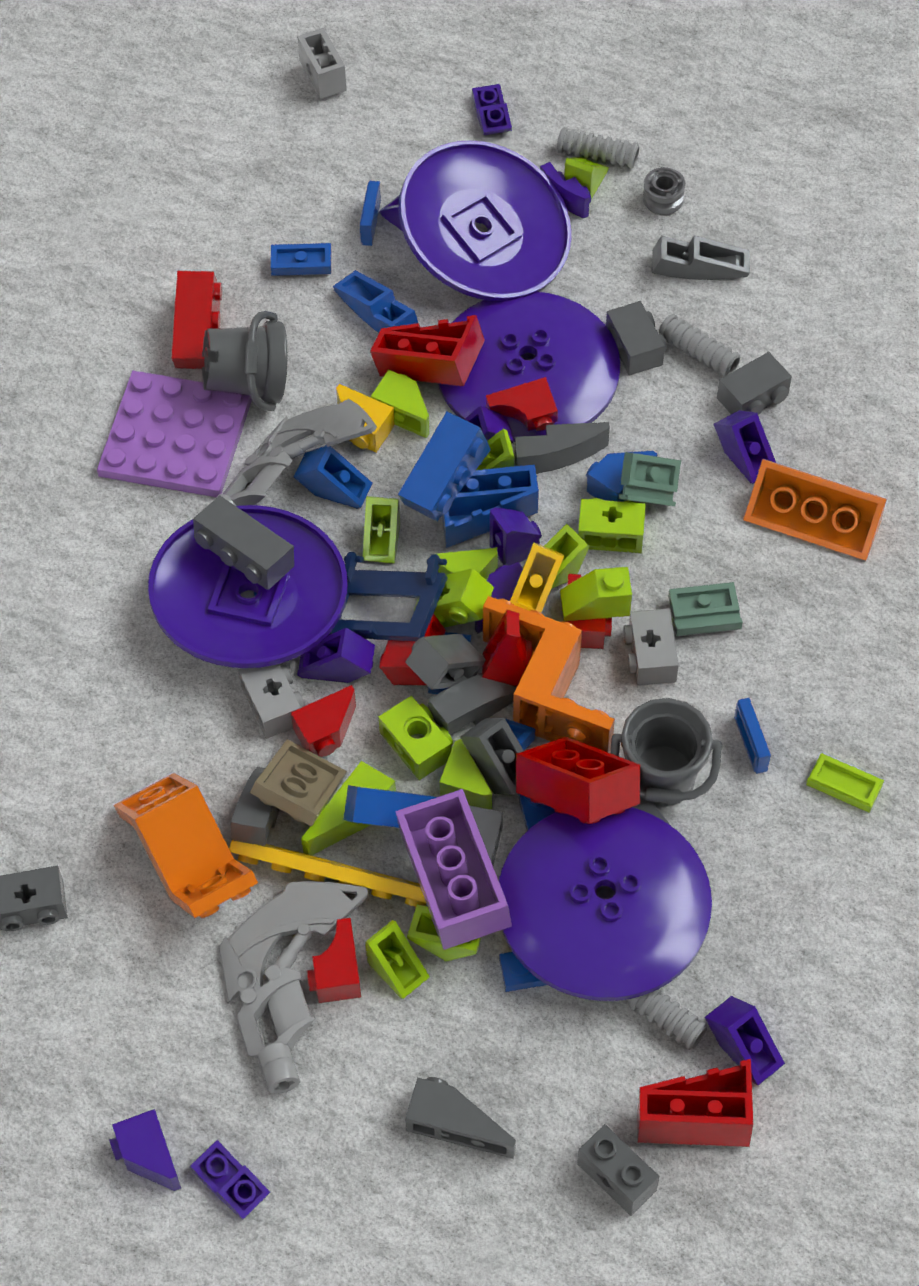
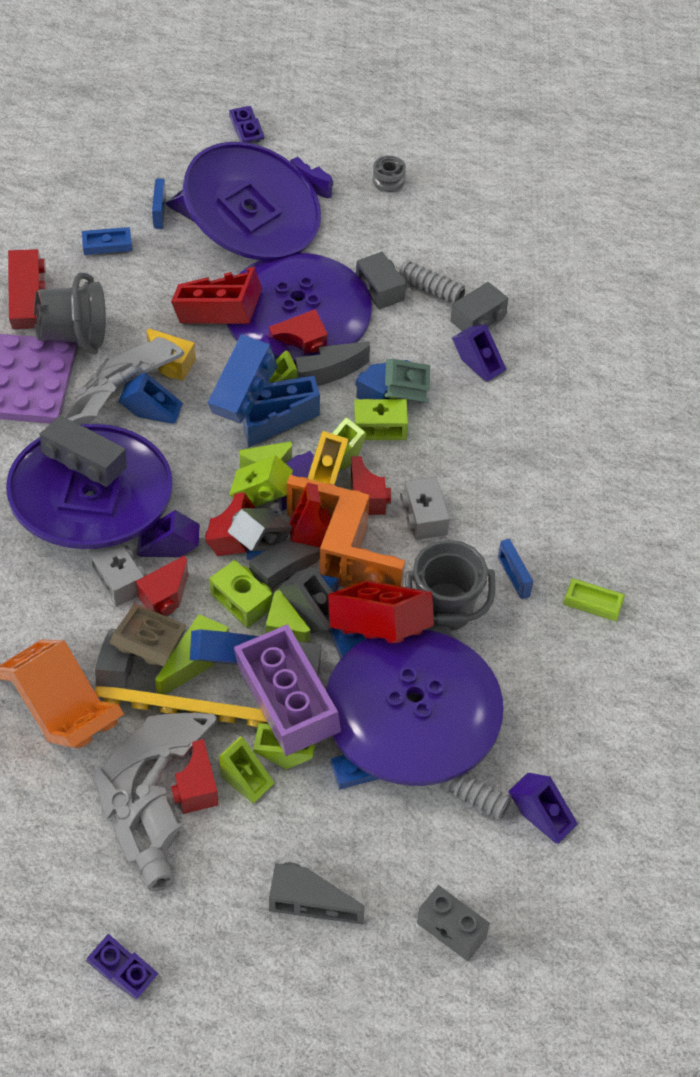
camera: 10 degrees left, 5 degrees down
(144, 1149) = (46, 949): dark purple slope -> none
(322, 63) = (108, 97): light grey brick -> none
(373, 302) = (168, 267): blue slope -> none
(381, 529) = (194, 435): lime slope -> none
(390, 602) = (211, 489): dark blue piece -> none
(405, 397) = (207, 343): lime slope -> none
(512, 535) = (301, 430): dark purple slope -> none
(586, 172) = (327, 163): lime slope -> none
(597, 147) = (333, 146): light grey piece -> none
(598, 595) = (378, 469): lime slope -> none
(698, 1109) = (514, 866): red wedge -> none
(699, 259) = (423, 220): dark grey slope -> none
(705, 609) = (464, 476): sand green plate -> none
(815, 509) = (540, 394): orange slope -> none

